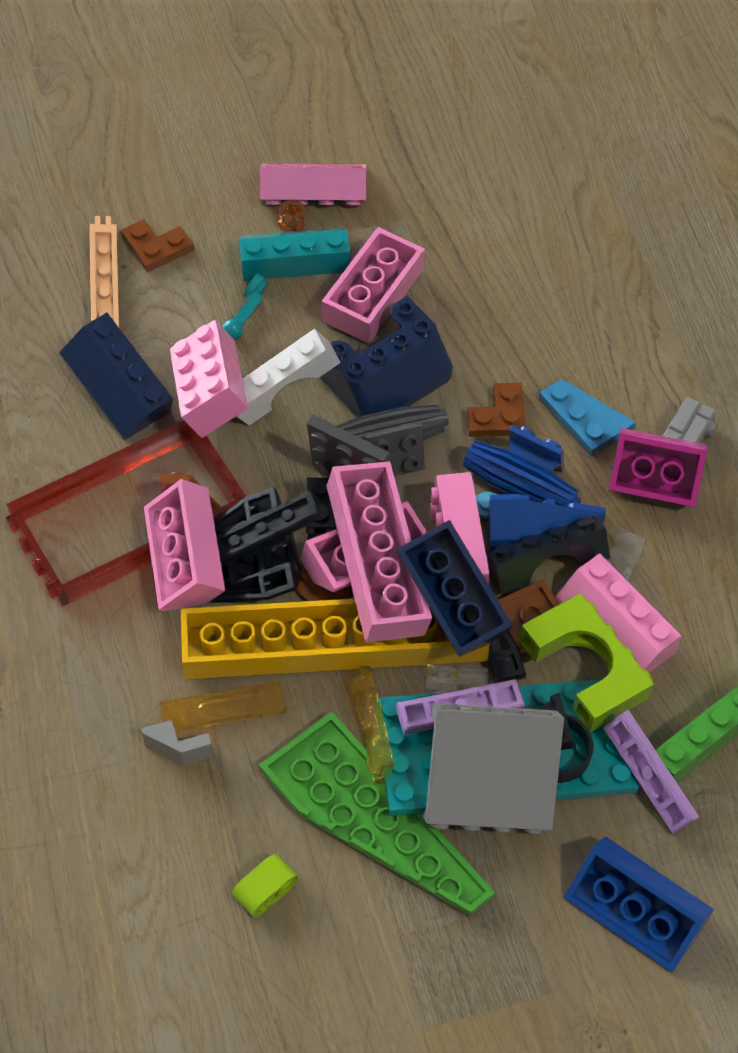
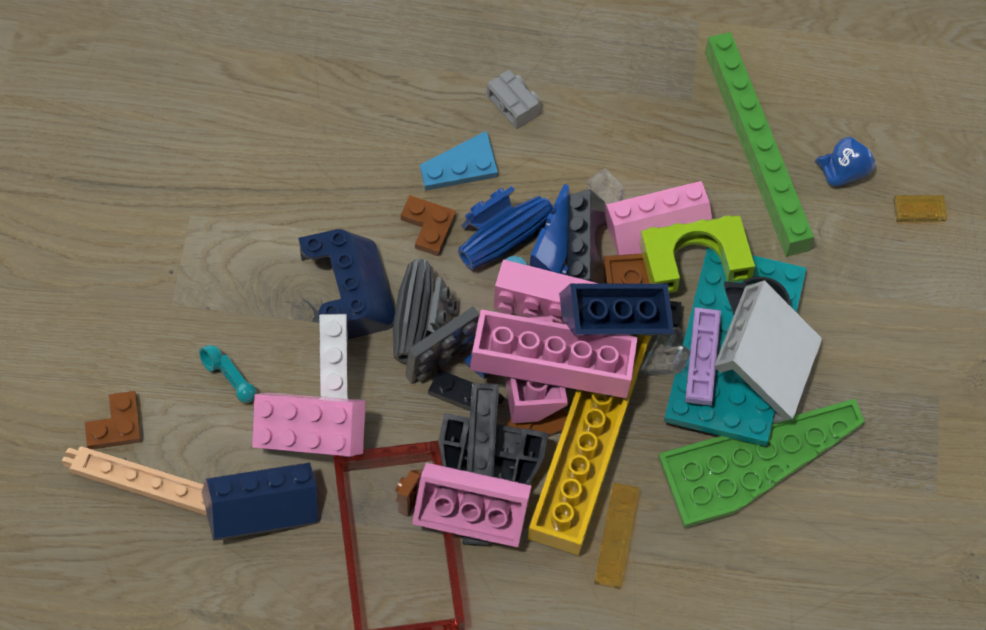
camera: 70 degrees left, 5 degrees up
(164, 741) = (636, 585): light grey slope -> none
(265, 885) = (788, 558): lime beam -> none
(287, 221) = (150, 305): clear orange wheel -> none
(294, 253) = (185, 312): teal slope -> none
(313, 182) = (117, 267): bright pink slope -> none
(372, 285) = (261, 262): bright pink brick -> none
(373, 728) = (686, 426): clear yellow plate -> none
(638, 903) = (896, 307): blue slope -> none
(650, 772) = (802, 252): lavender plate -> none
(658, 467) = (545, 131): dark pink brick -> none

